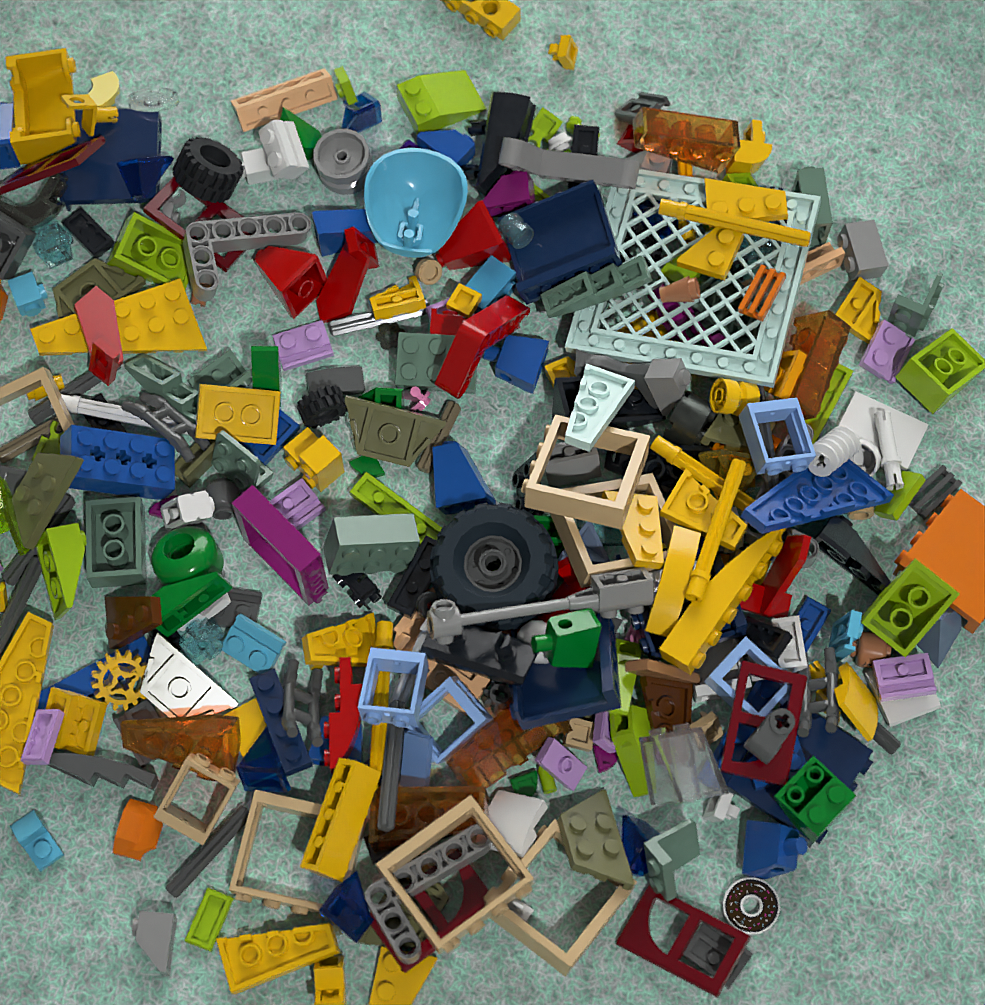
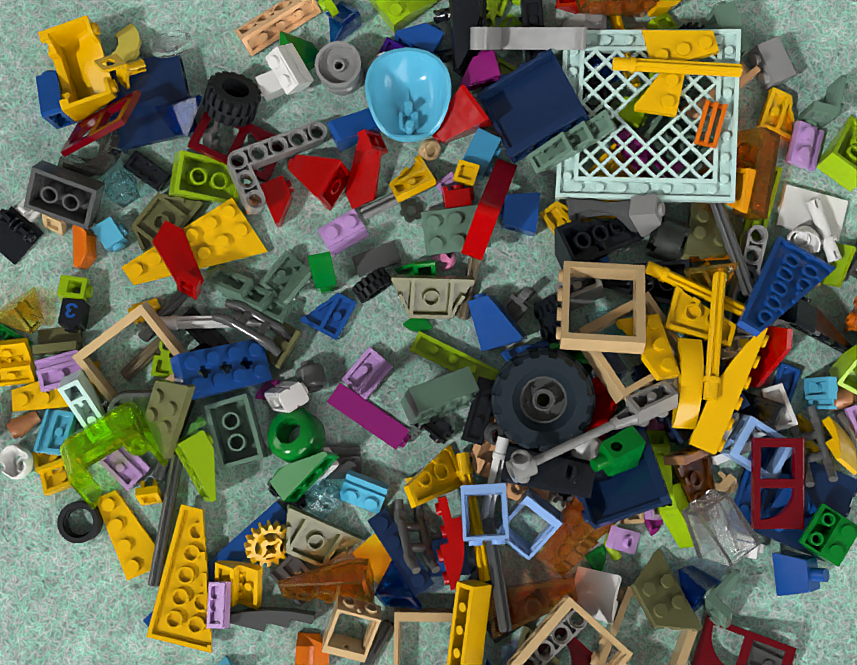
camera: 15 degrees left, 15 degrees up
(130, 618) = (263, 493): reddish brown wing -> none
(235, 290) = (278, 198): none -> red slope
(239, 463) = (318, 347): sand green bracket -> none
(240, 412) = (307, 309): yellow tile -> none
(315, 458) = (375, 328): yellow brick -> none
(416, 759) = (513, 560): medium blue tile -> none
(492, 465) = (516, 305): none -> dark grey plate
(516, 230) = (493, 102): clear light blue wheel -> none
(560, 142) = (512, 17): white plate -> none
(595, 406) = (595, 246): light aqua wing -> none
(681, 291) = (643, 134): nougat cone -> none
(732, 396) = (703, 217): yellow wheel -> none
(751, 889) = (795, 625): tile -> none
(767, 738) = (788, 499): dark grey piece -> none
(774, 411) = (760, 238): light blue window -> none
(834, 450) = (787, 245): white piece -> none

